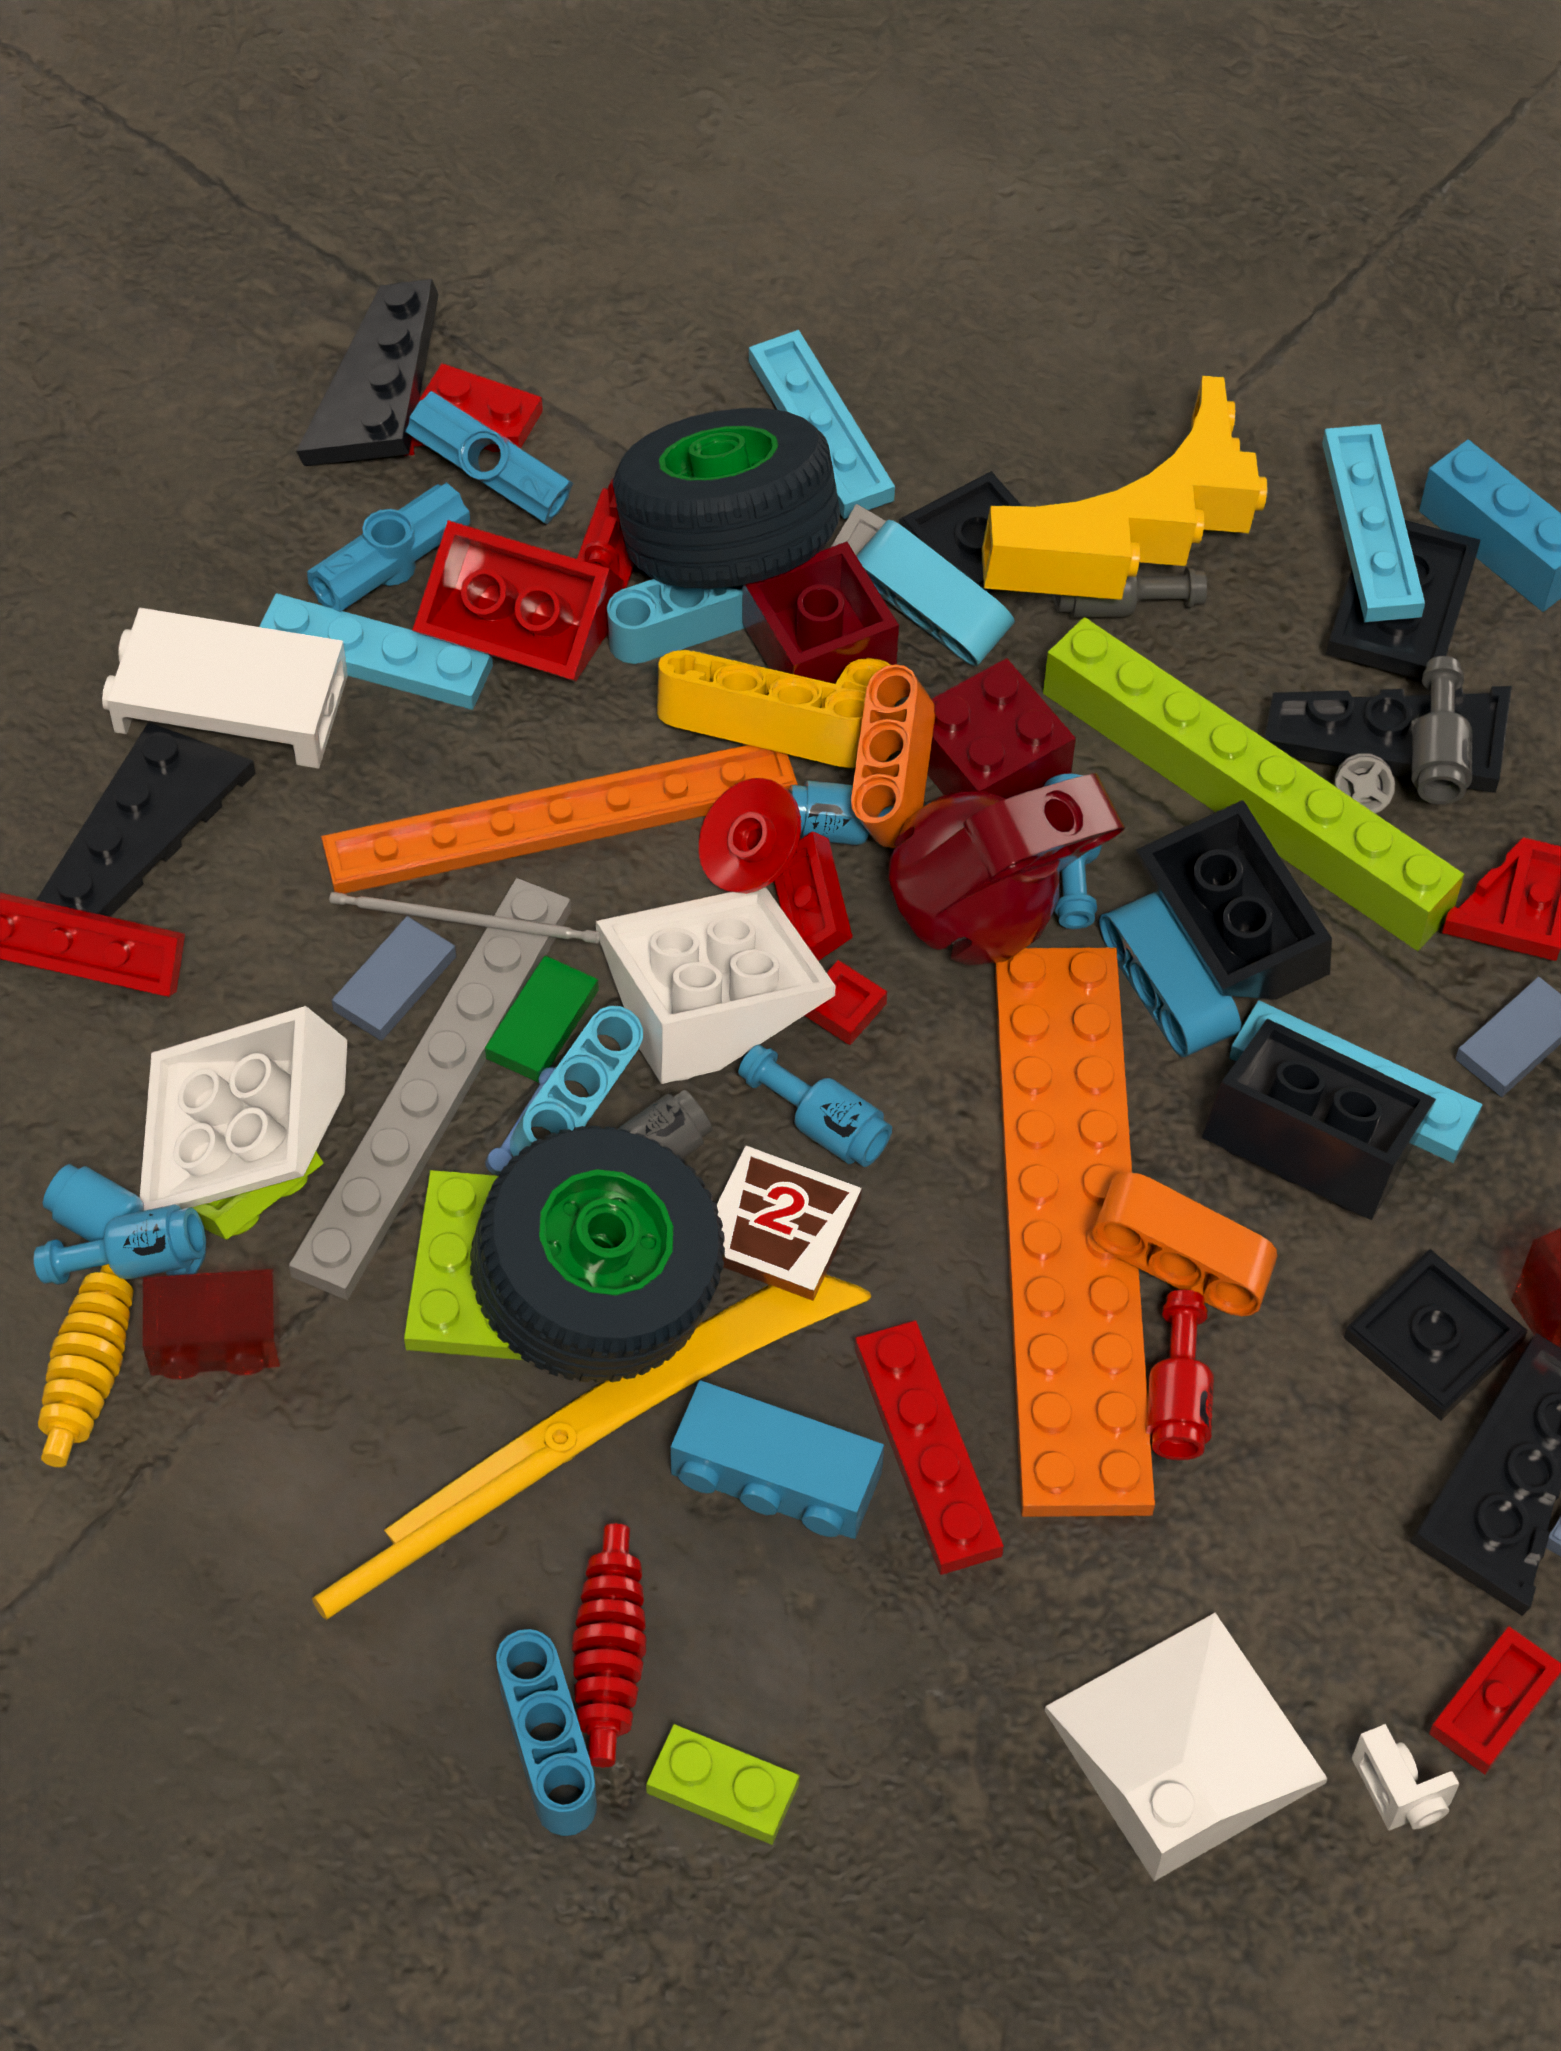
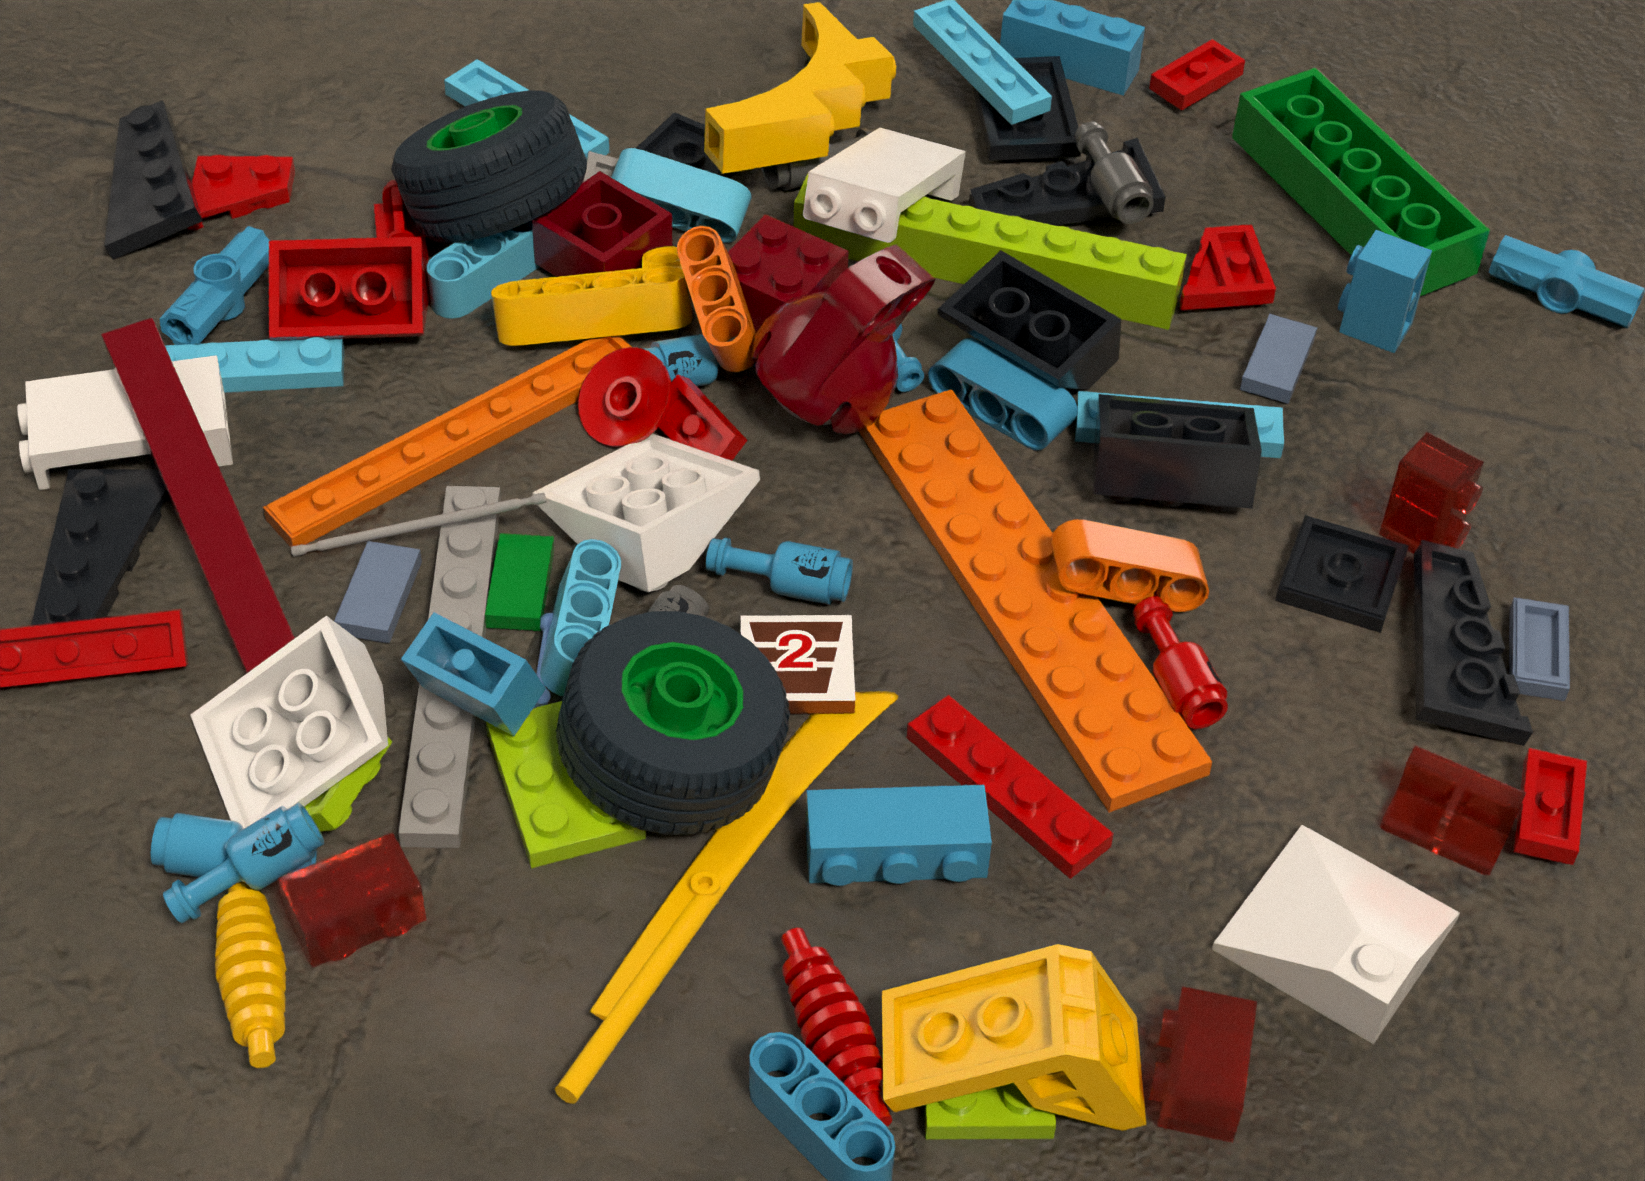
camera: 25 degrees left, 10 degrees down
(254, 804) = (198, 493): none -> dark red tile
(423, 1125) = (474, 673): none -> dark azure brick
(462, 438) = (243, 194): dark azure piece -> none
(785, 1726) = (1024, 1020): none -> yellow bracket
(852, 1007) = (771, 493): red plate -> none
(954, 1833) = (1206, 1064): none -> clear red brick
(1161, 656) = (879, 179): none -> white panel
(1366, 785) = (1076, 216): light grey wheel -> none
(1383, 1664) = (1452, 811): none -> clear red panel
(1391, 1782) = (1516, 893): white bracket -> none

